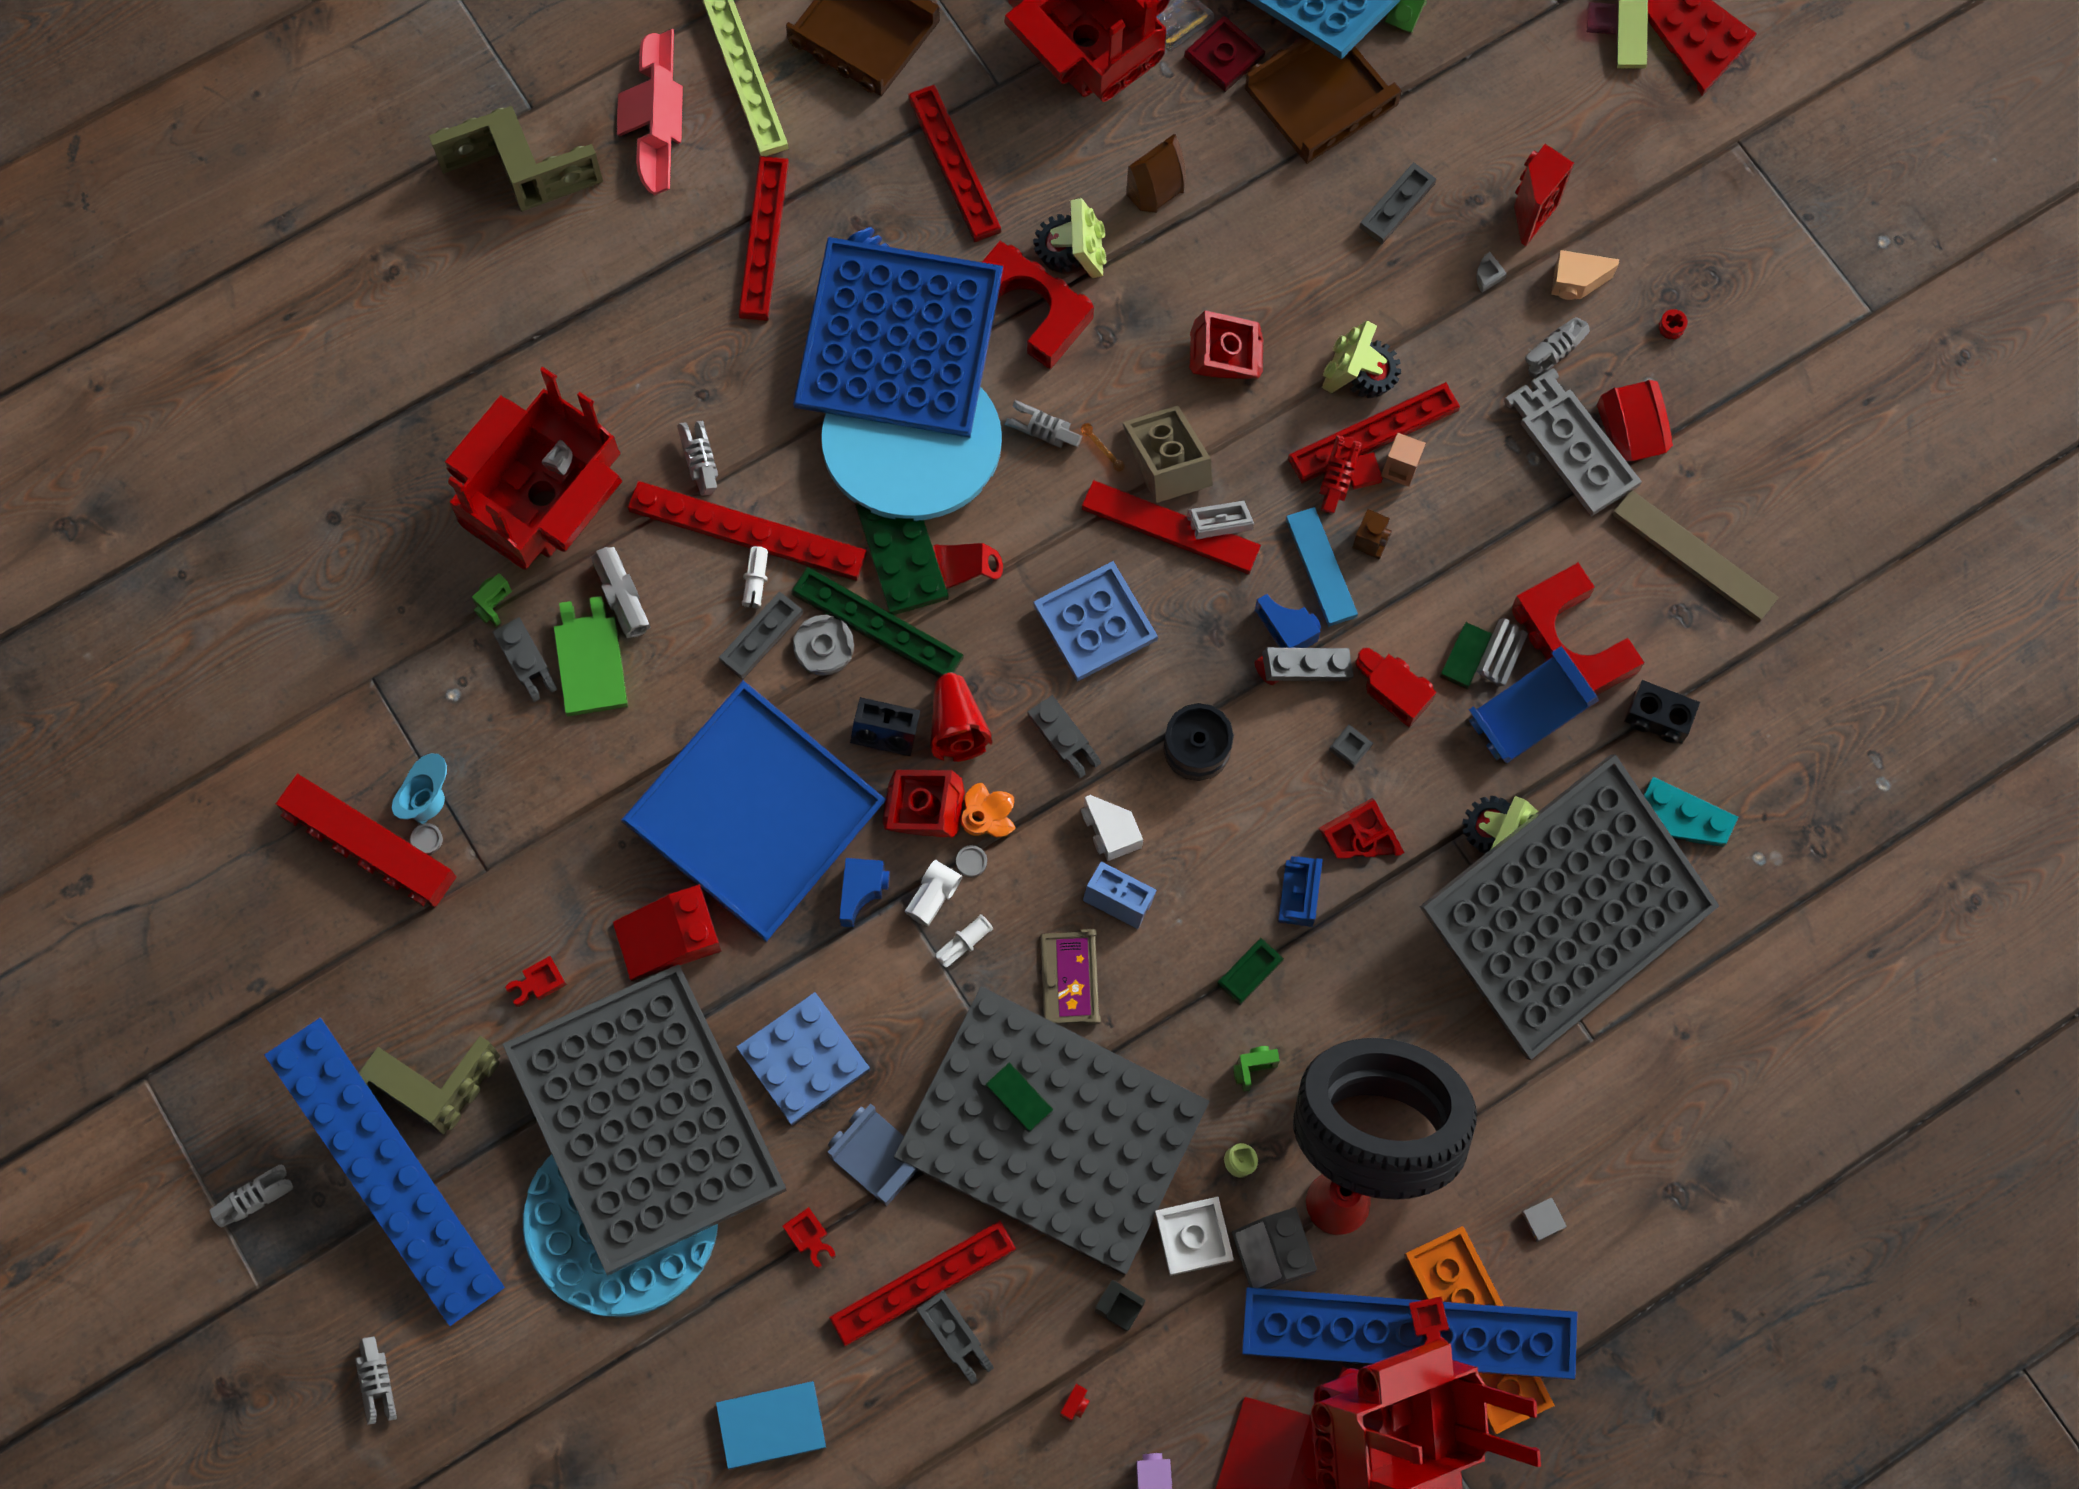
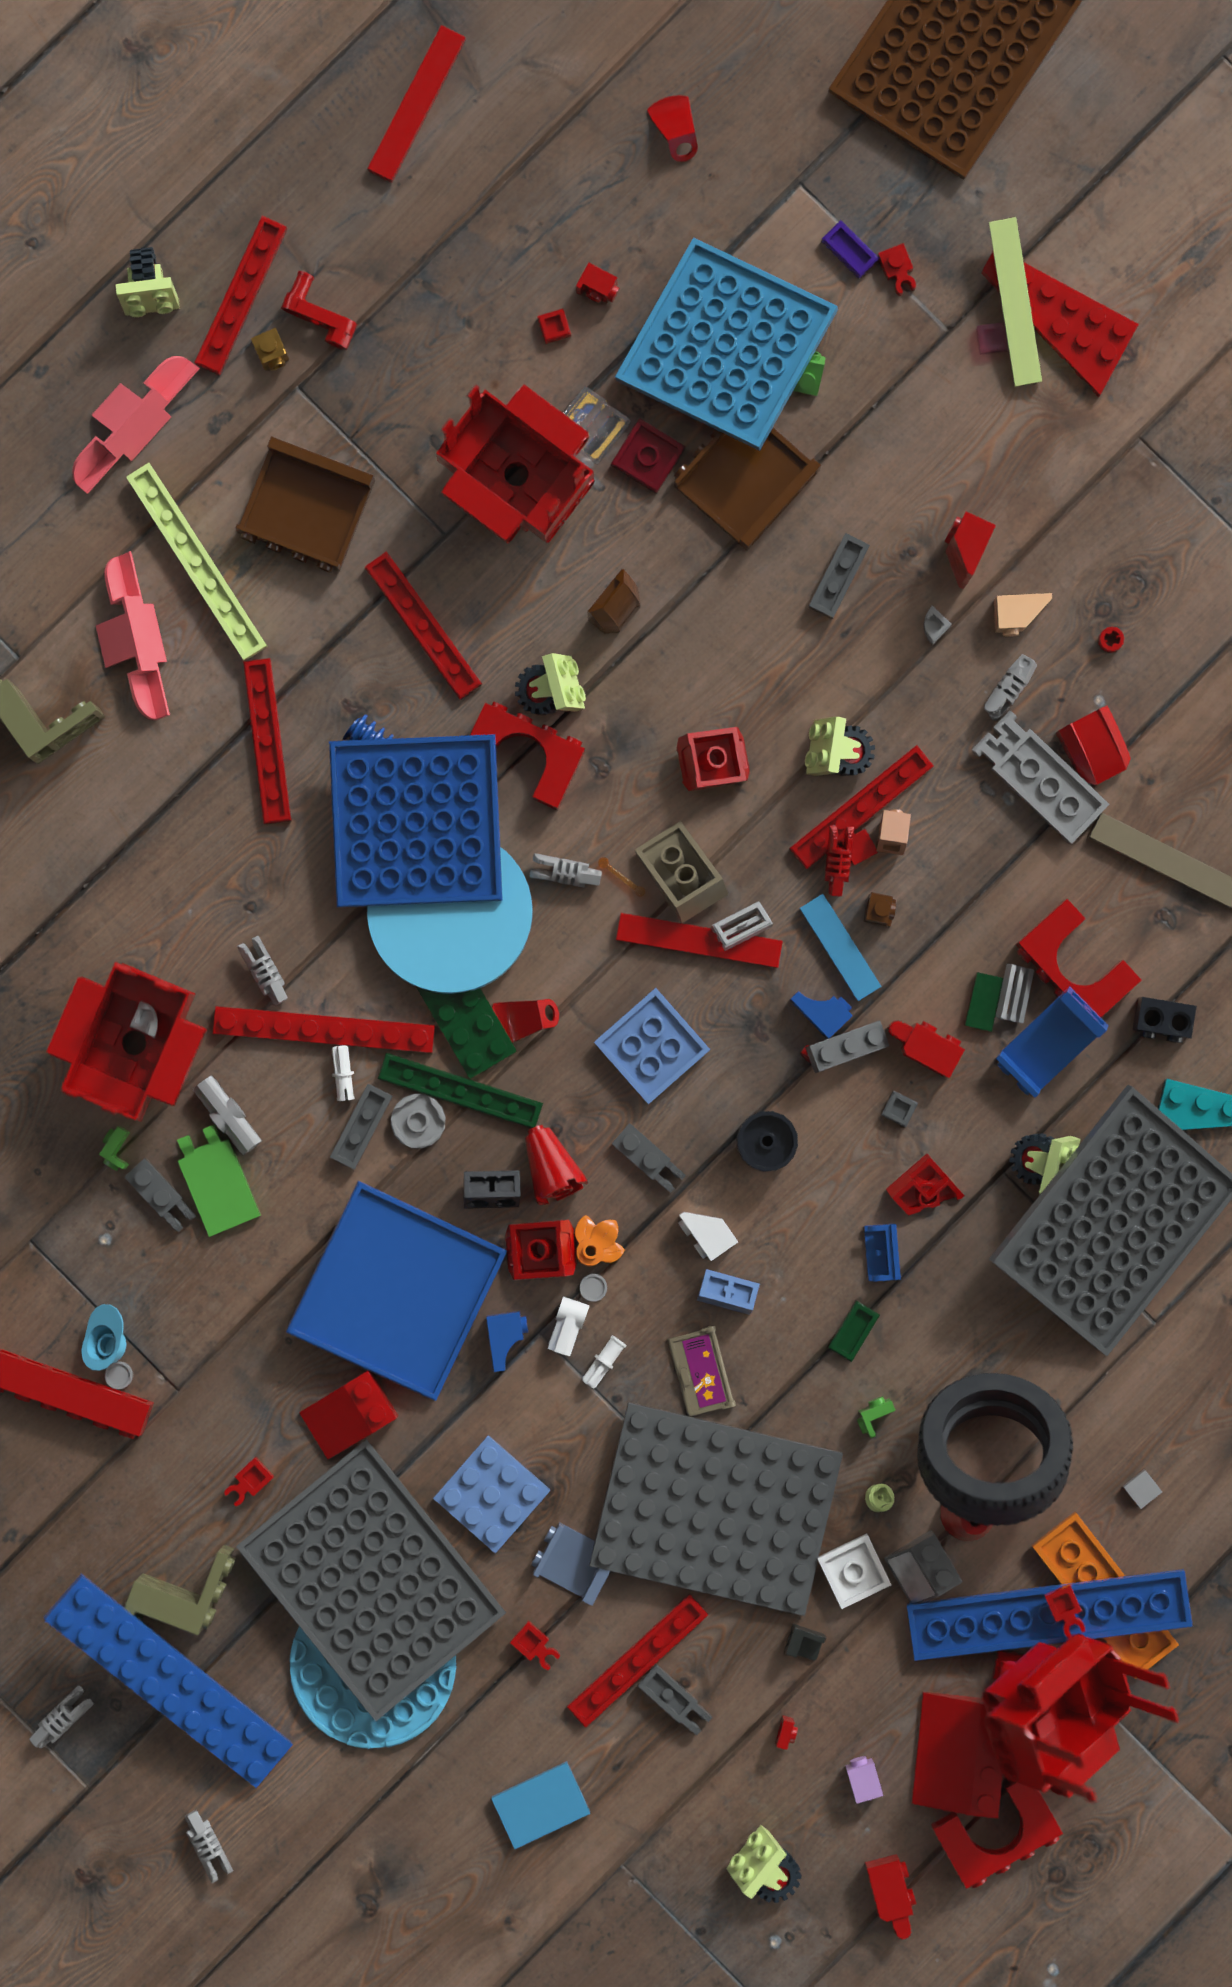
camera: 15 degrees left, 15 degrees up
(1019, 1097) = (683, 1493): dark green tile -> none

